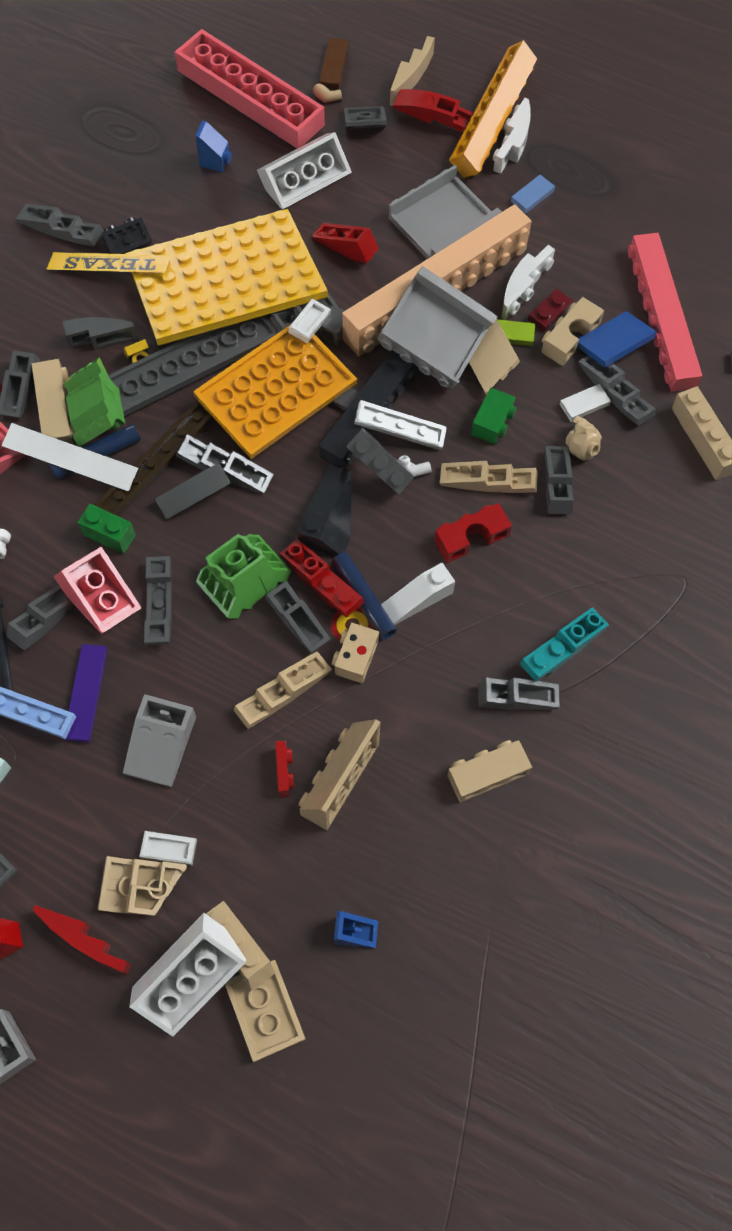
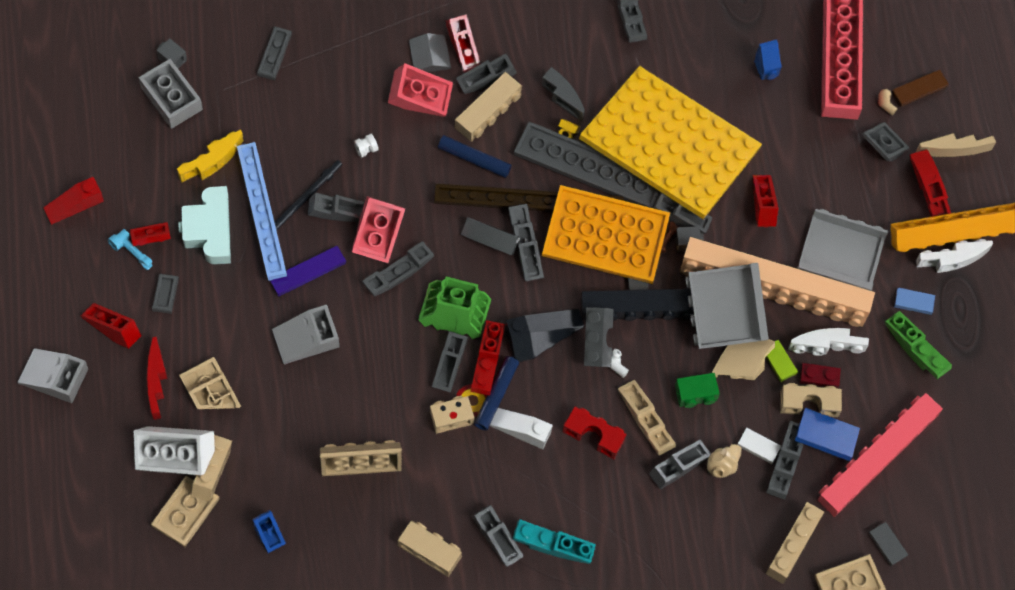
camera: 50 degrees right, 0 degrees up
(70, 457) = (456, 144): white sticker -> none
(93, 402) = (503, 131): bright green slope -> none
(106, 528) = (424, 203): green brick -> none
(109, 262) = (622, 61): yellow sticker -> none
(127, 236) = (652, 58): black bracket -> none
(168, 848) = (244, 389): white tile -> none
(282, 690) = (394, 387): tan slope -> none
(285, 779) = (336, 426): red plate -> none
(305, 170) = (803, 133): white slope -> none
(309, 321) = (672, 220): white tile -> none
(400, 425) = (639, 333): white tile -> none
(574, 218) = (916, 346): none -> bright green slope

